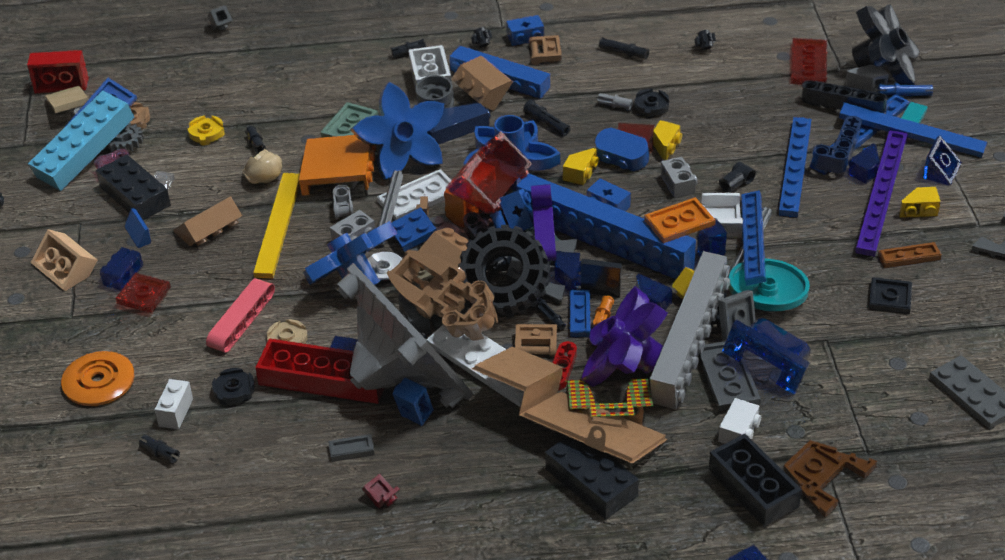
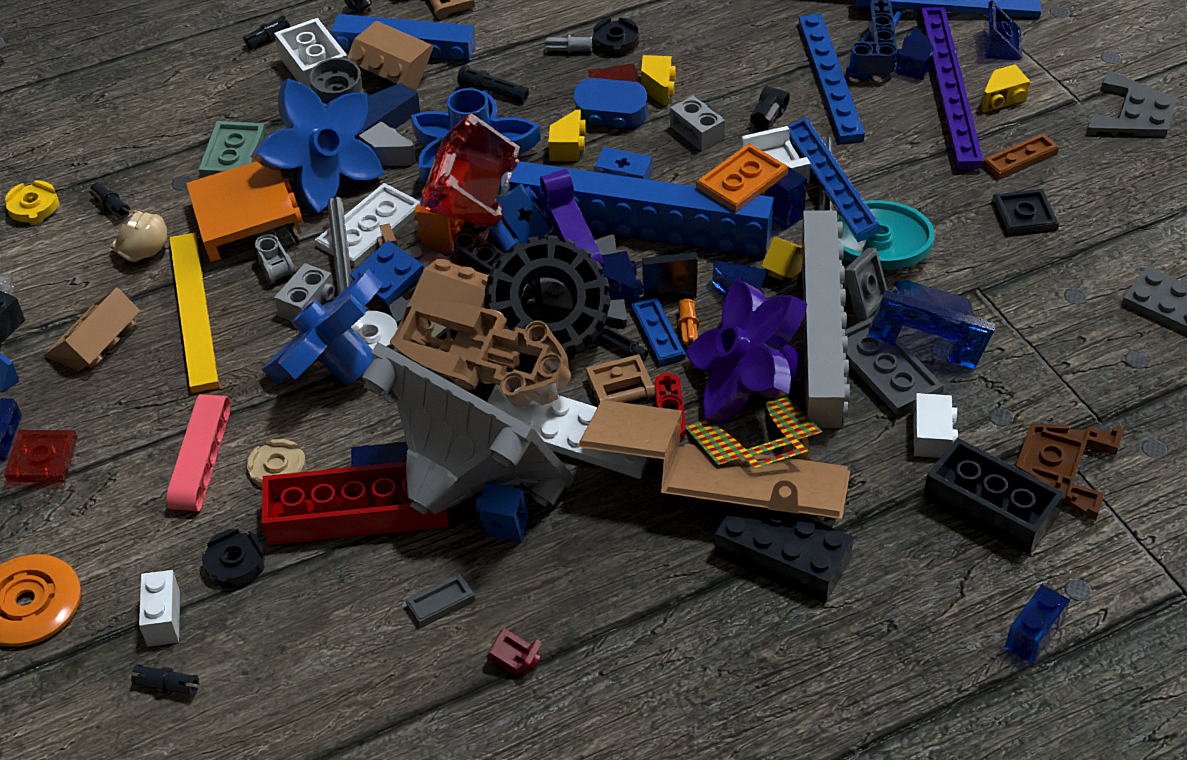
camera: 20 degrees left, 5 degrees up
(452, 144) = (389, 145): none -> light grey slope

